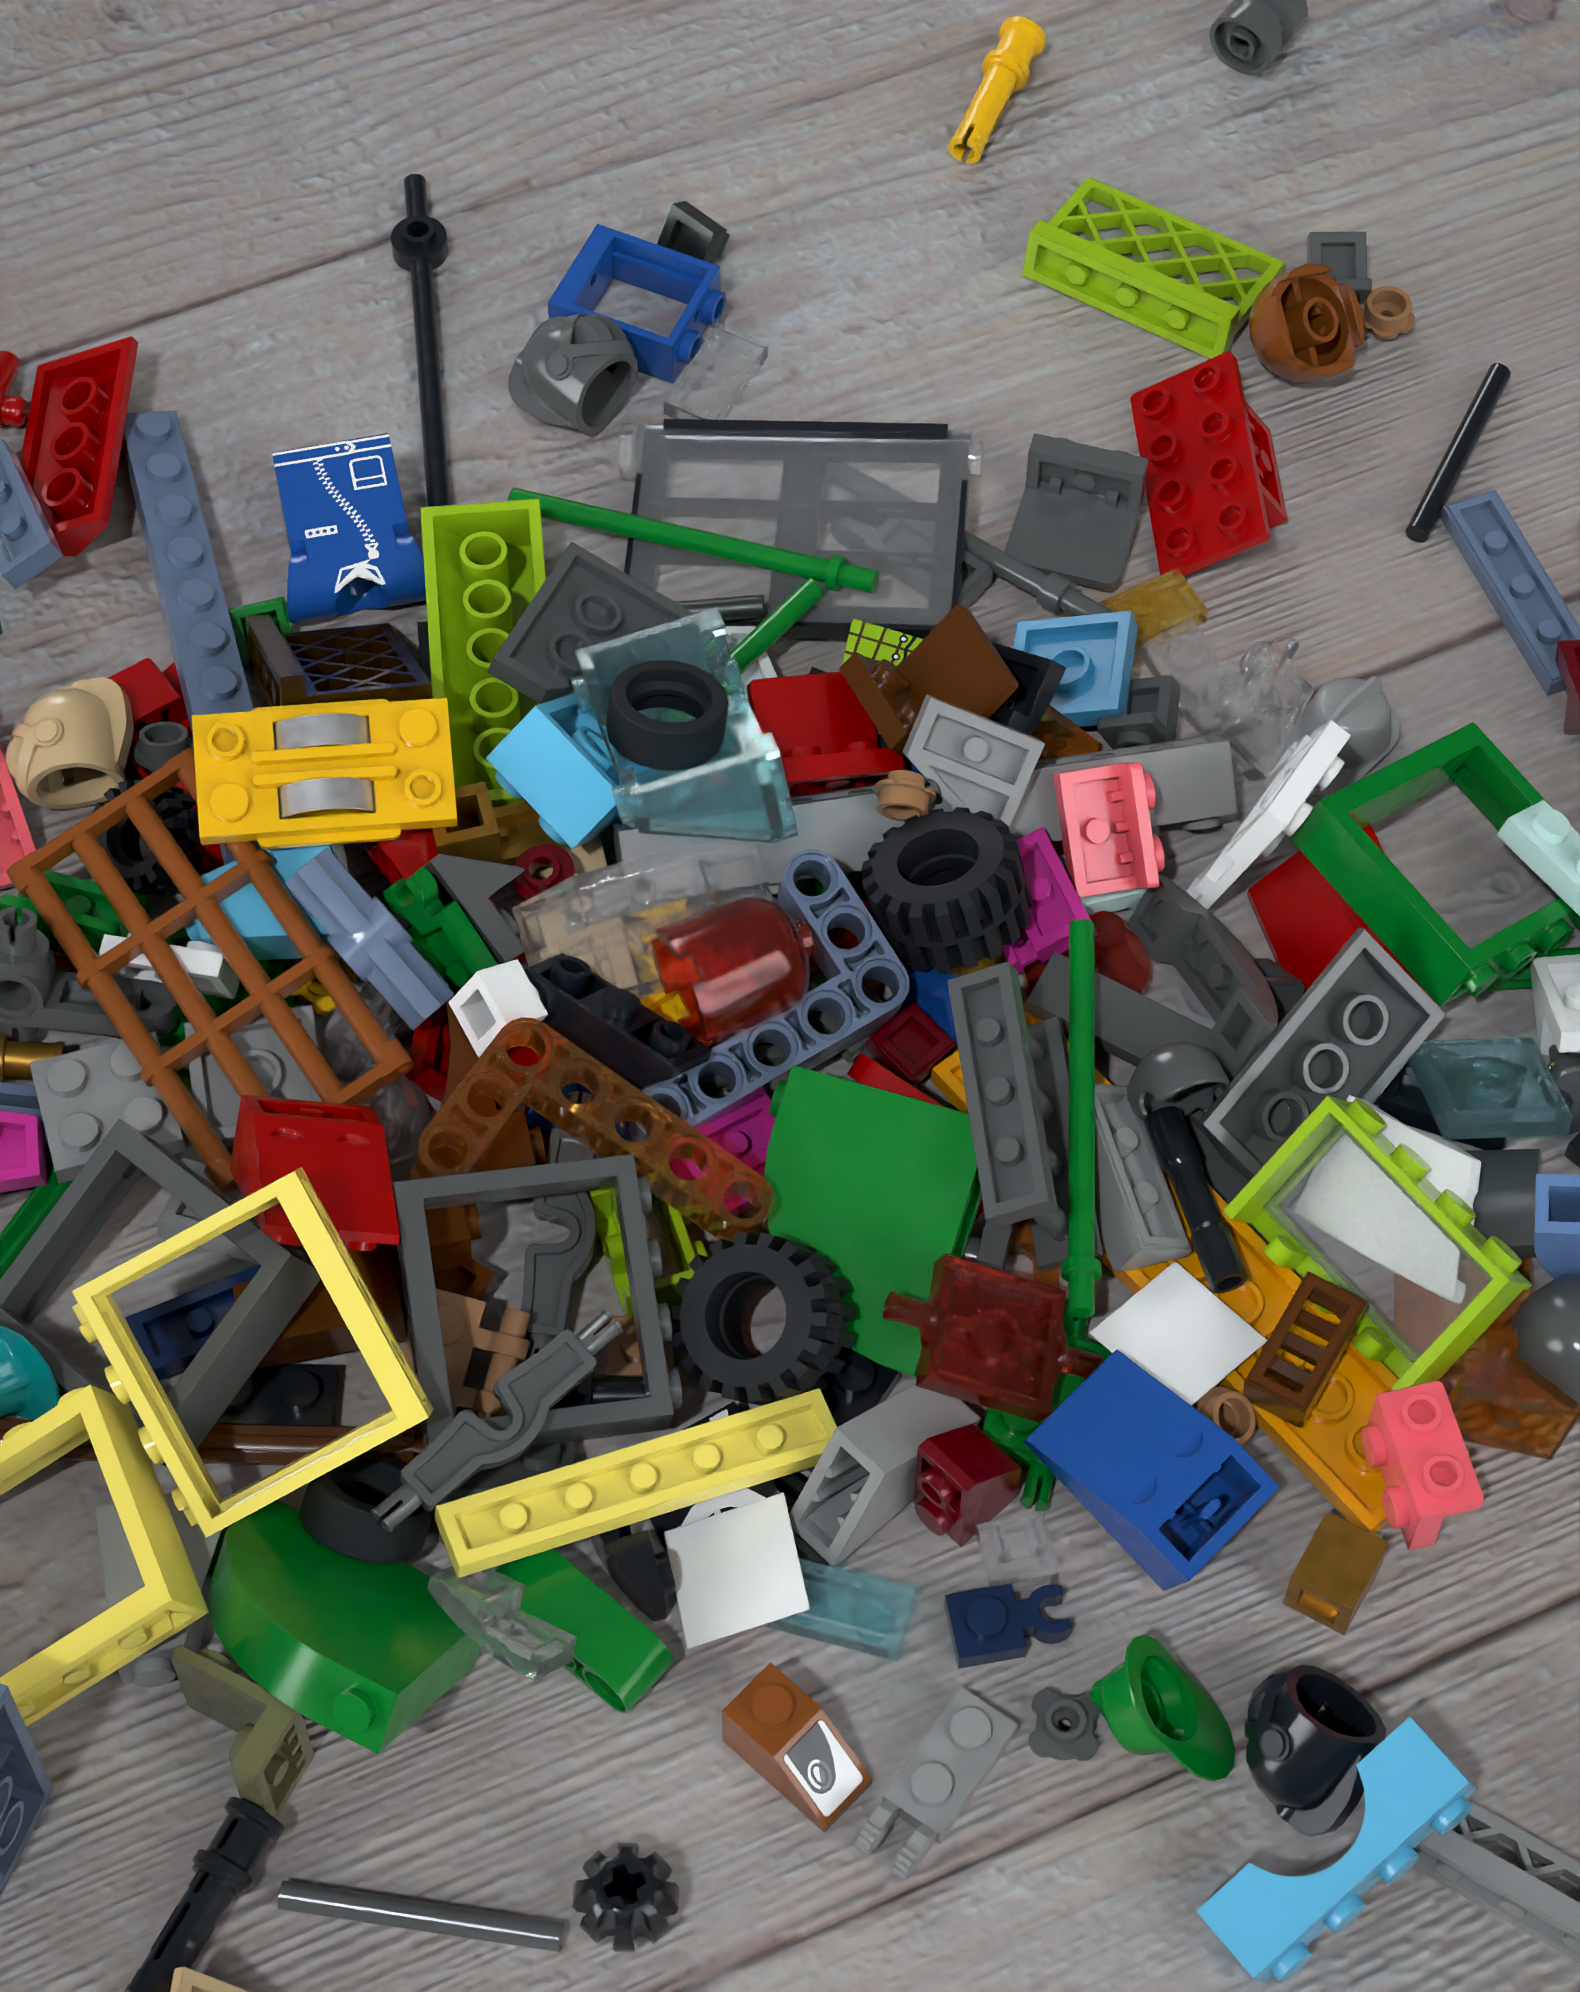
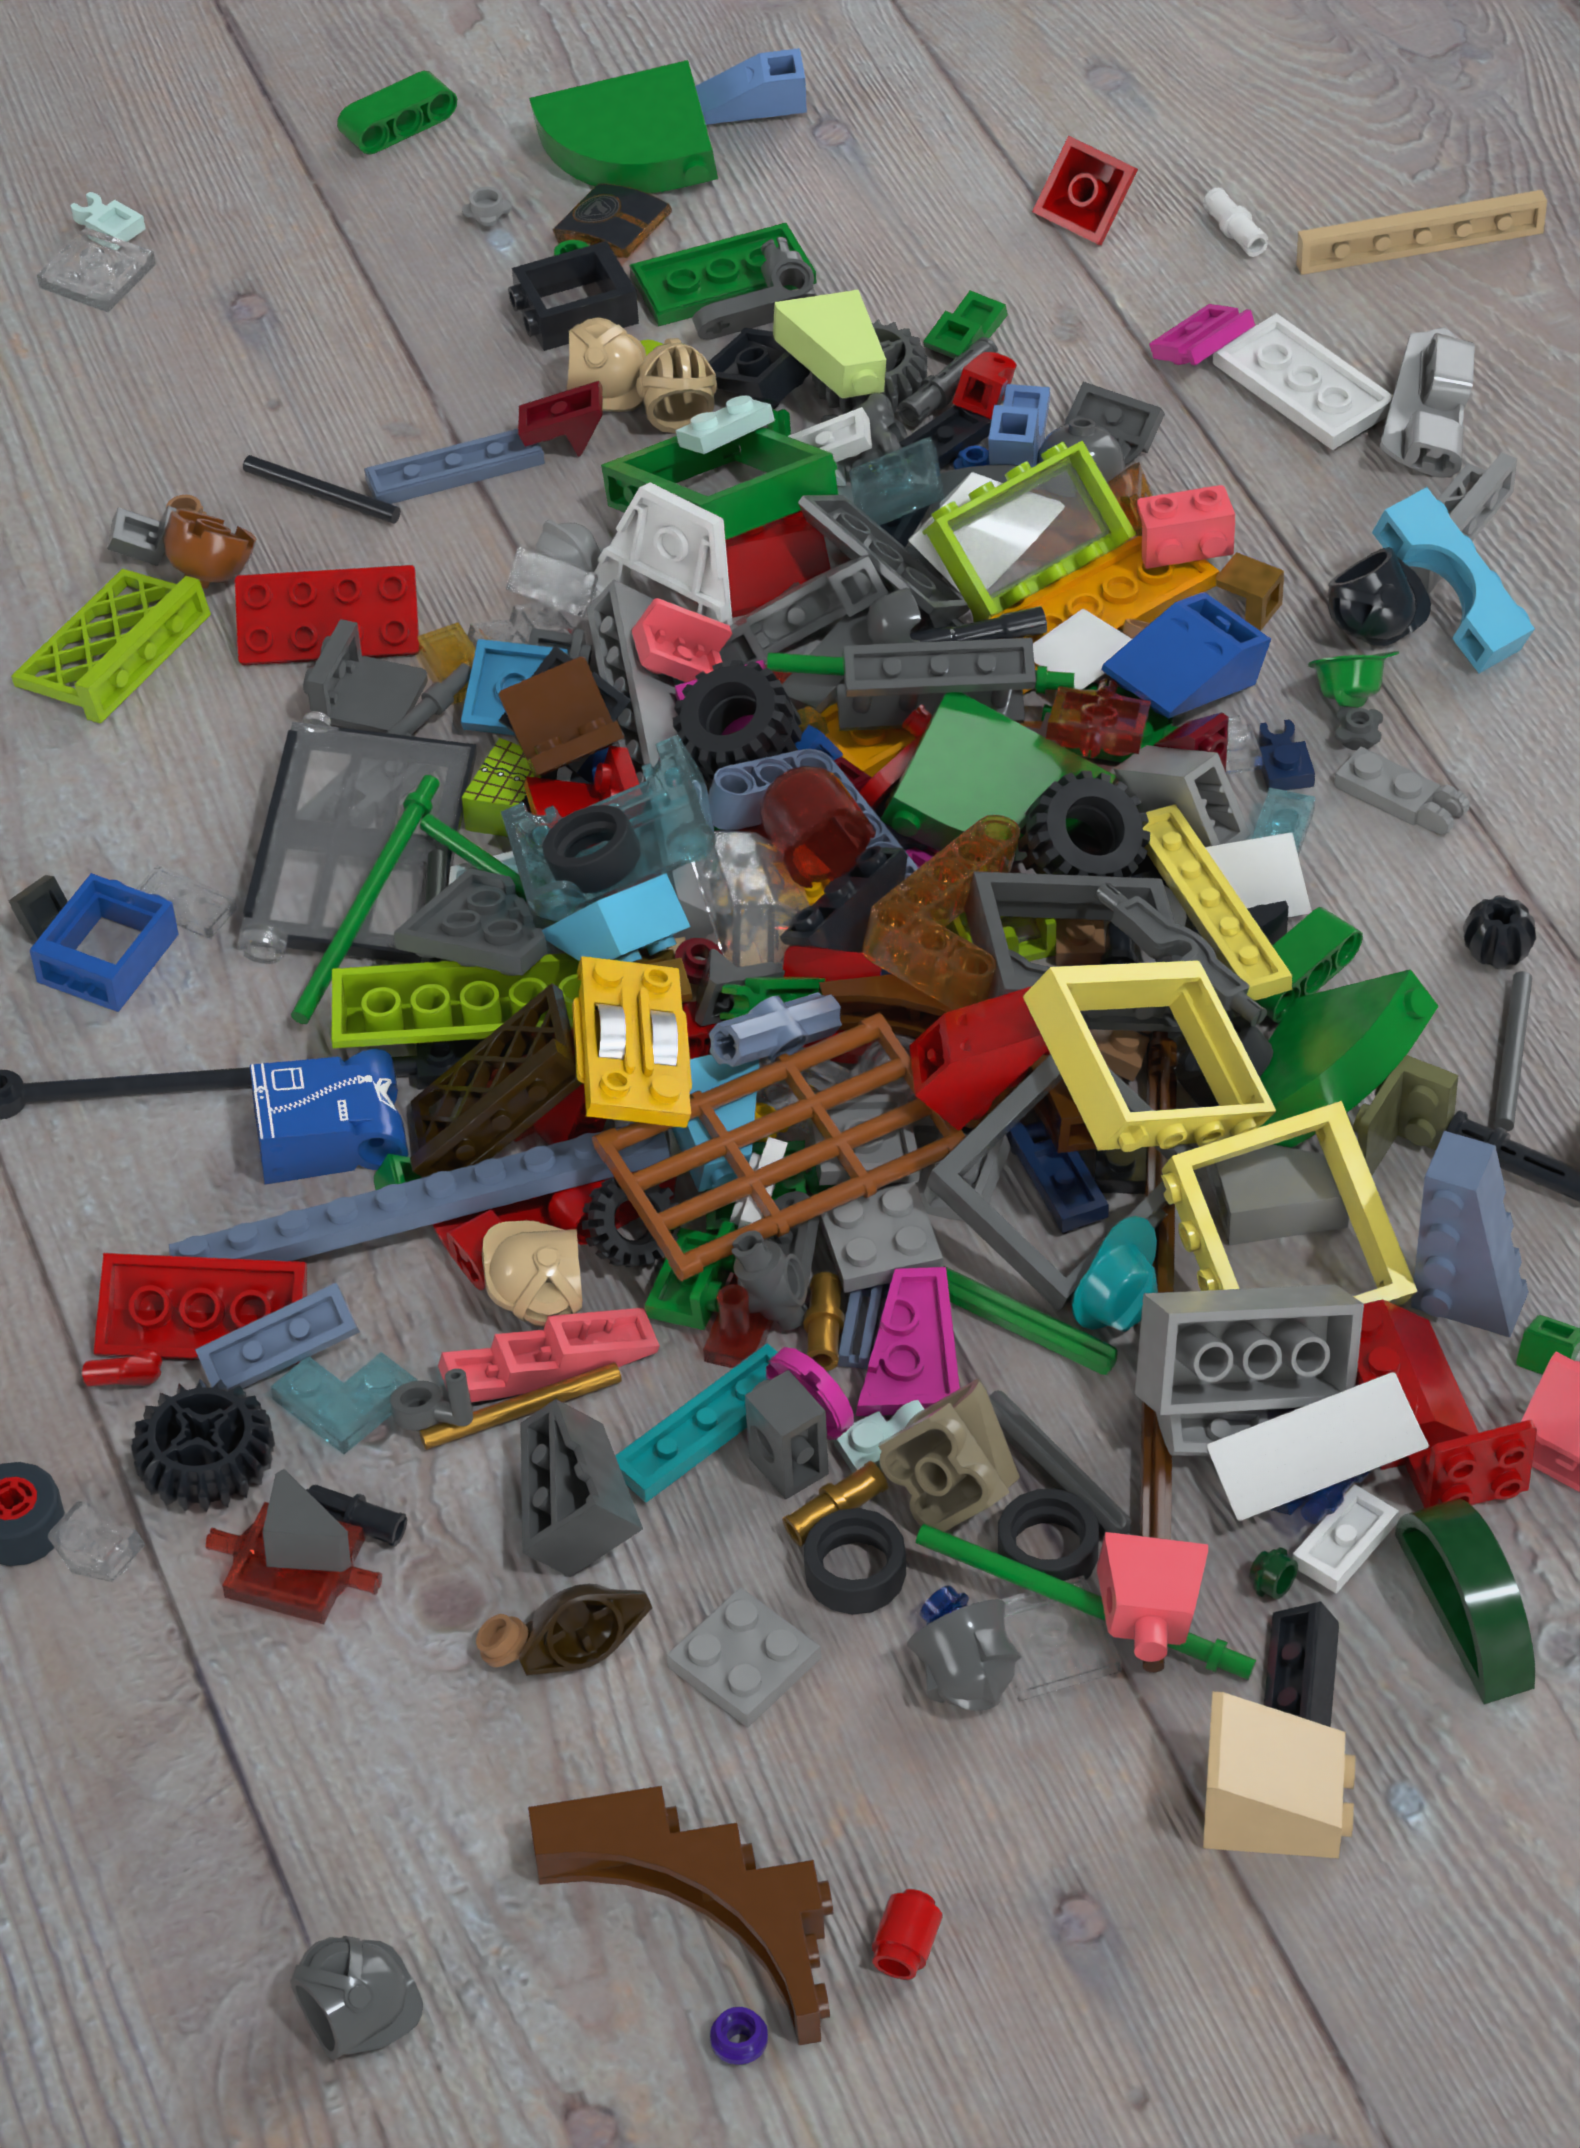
camera: 85 degrees left, 10 degrees down
(160, 743) = (542, 1210): dark grey plate -> none
(489, 1613) = (1325, 971): clear slope -> none
(493, 1000) = (841, 954): white plate -> none
(574, 372) = (180, 972): dark grey helmet -> none
(794, 1747) = (1379, 857): dark orange slope -> none
(903, 795) = (658, 732): medium nougat plate -> none
(972, 758) = (637, 696): light grey wing -> none
(1273, 1396) = (1118, 599): reddish brown slope -> none

